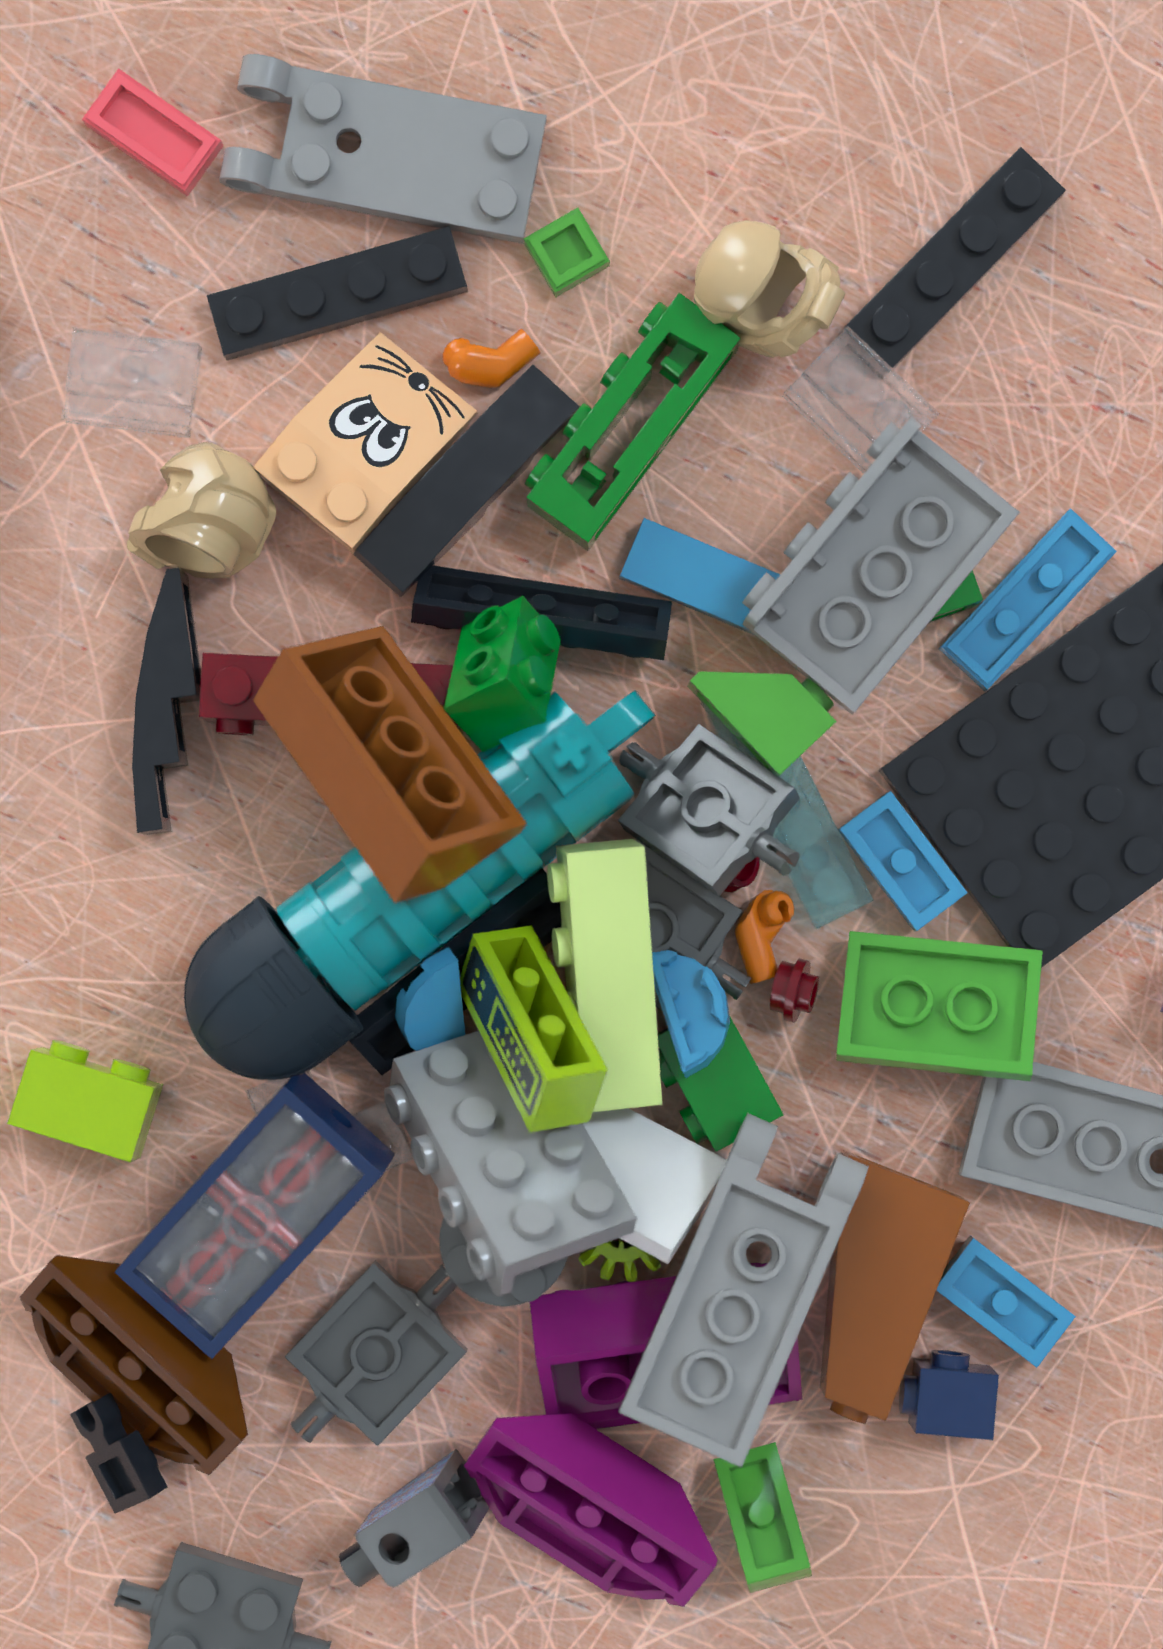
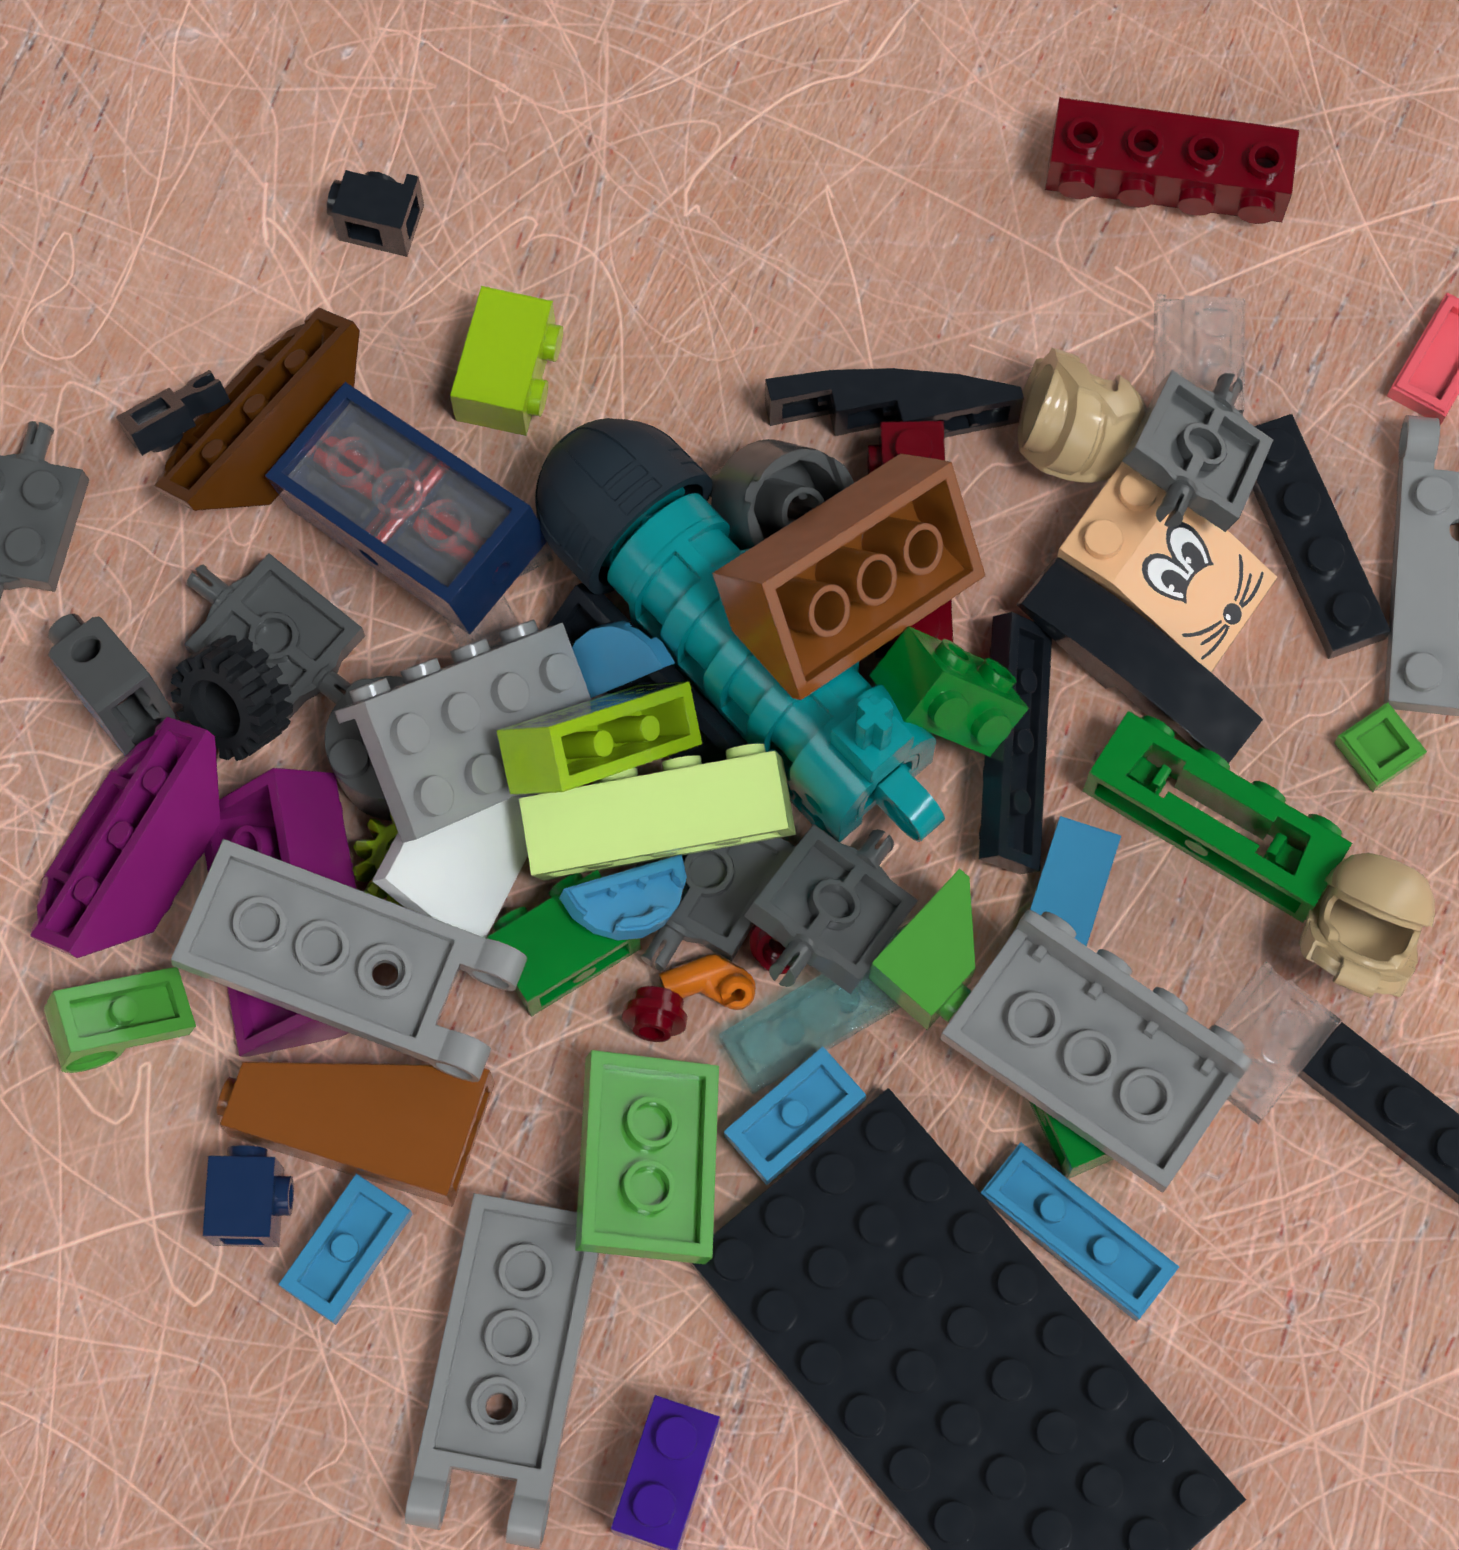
camera: 85 degrees right, 15 degrees down
(258, 395) = (1198, 450): none -> dark grey plate
(275, 829) = (772, 486): none -> dark grey brick
(446, 1399) = (232, 696): none -> black tyre
(486, 365) = (1256, 676): orange arm -> none

